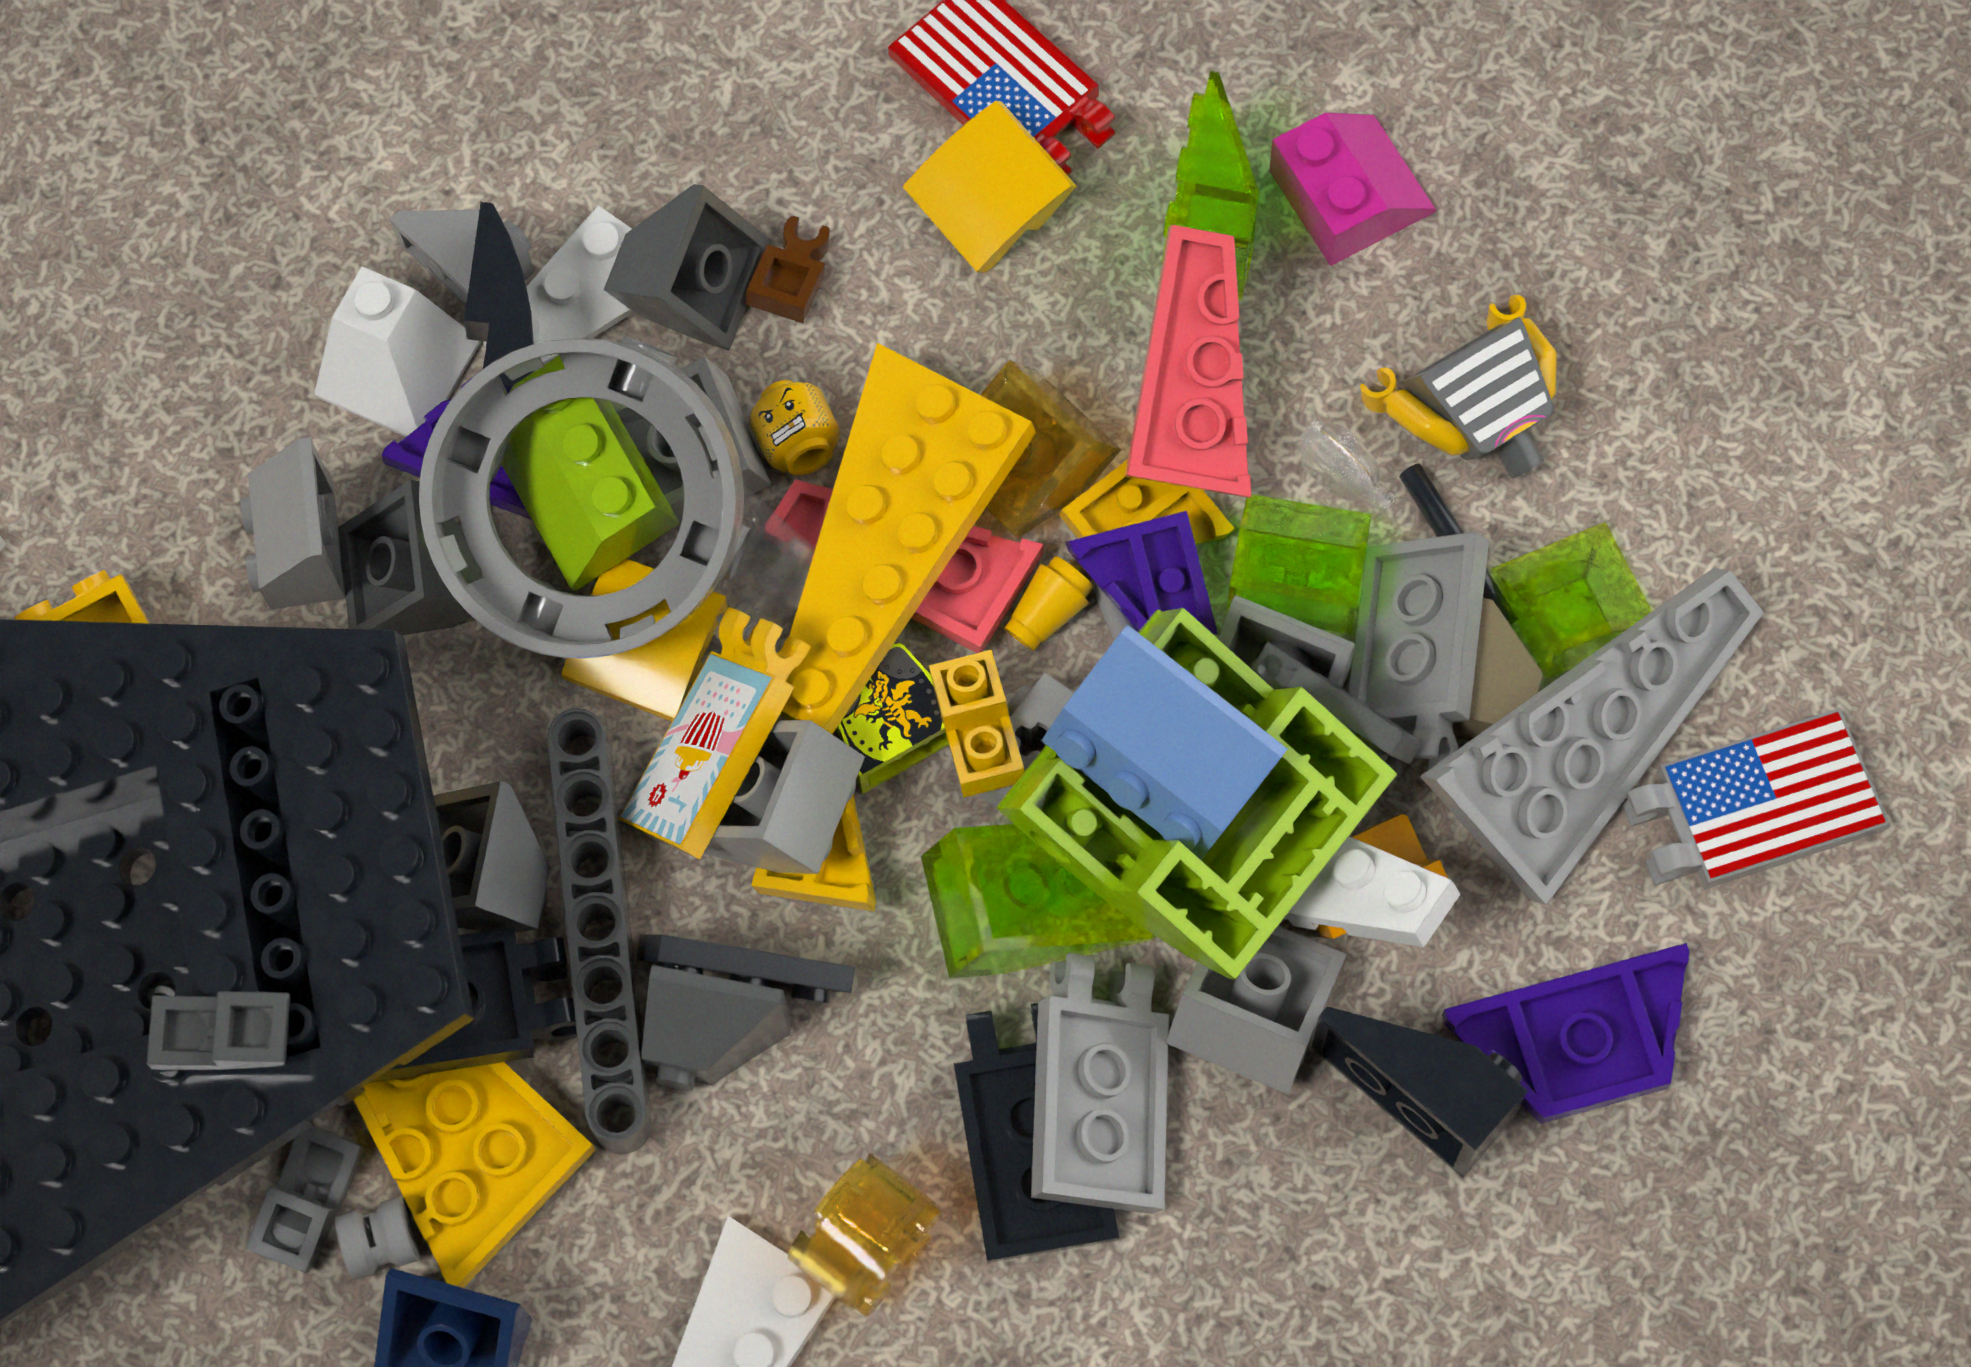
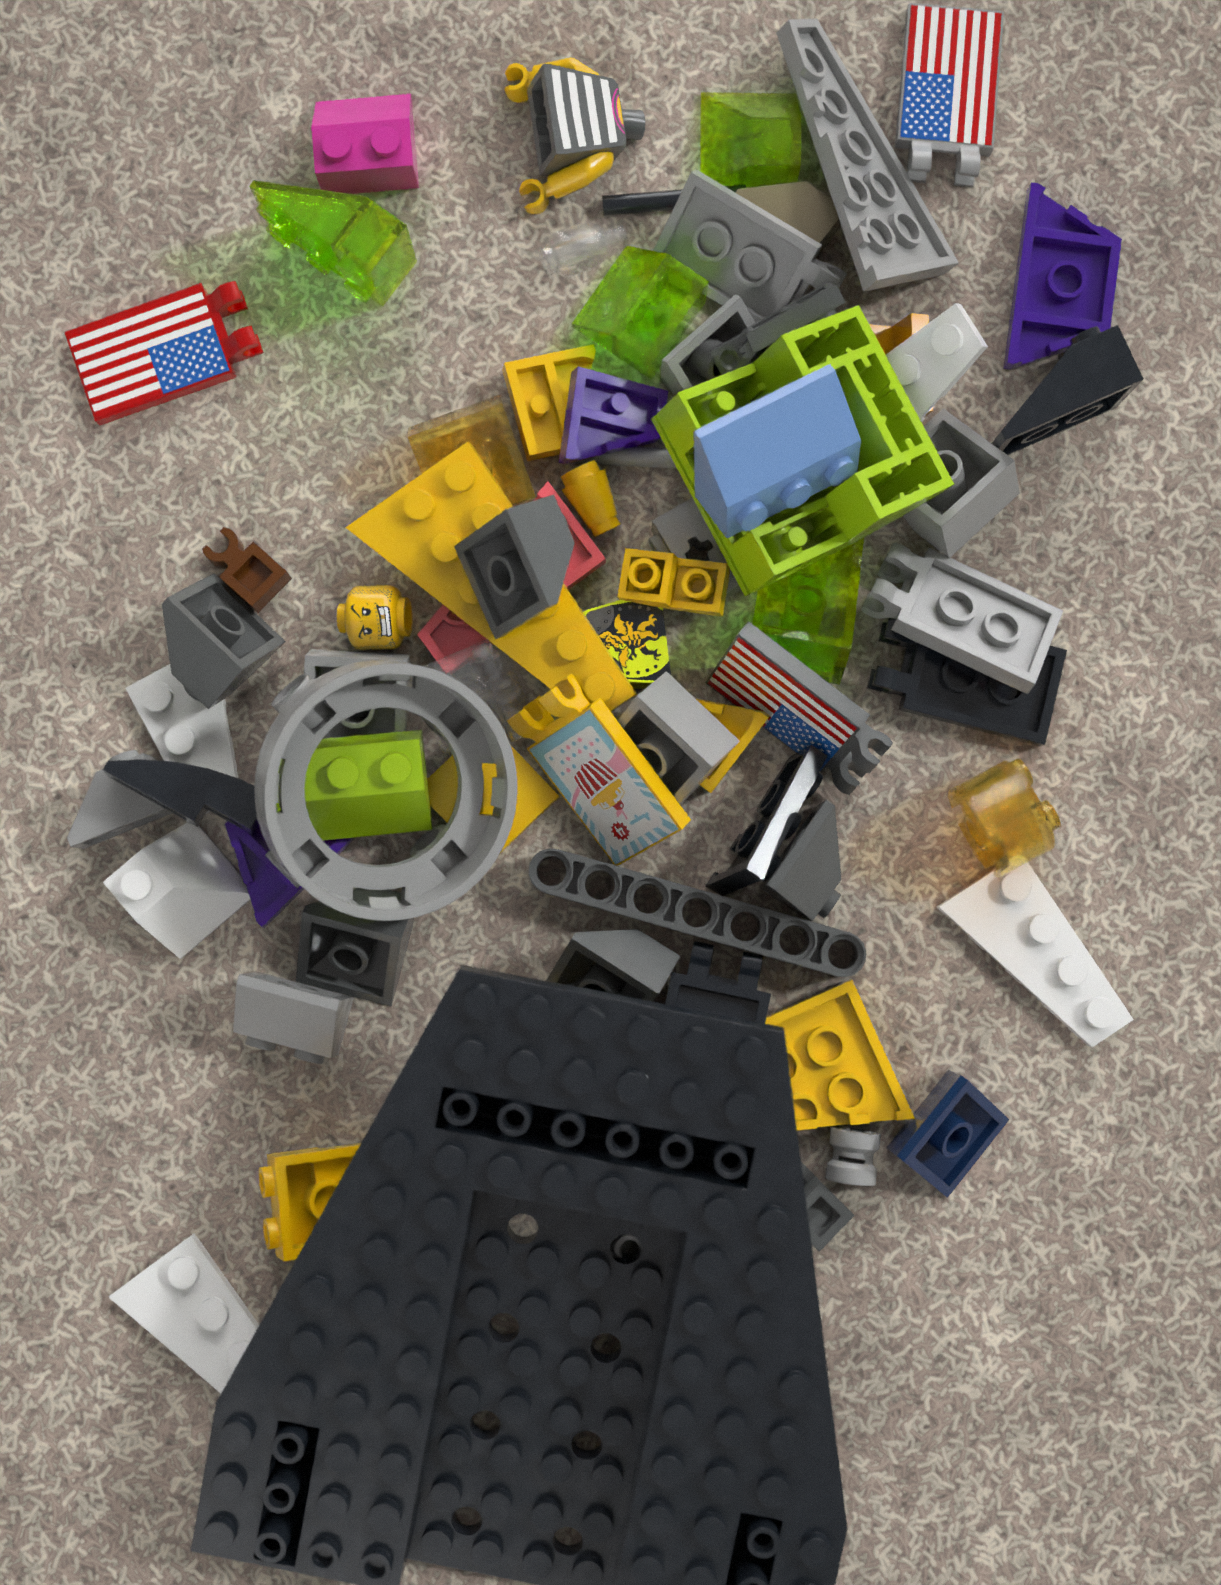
camera: 70 degrees left, 15 degrees up
(218, 1031) = (715, 1218): dark grey slope -> none
(895, 934) = (800, 705): none -> tile
(911, 523) = (518, 563): none -> dark grey slope
(989, 186) = (247, 396): yellow slope -> none
(1191, 389) = (490, 320): coral wing -> none

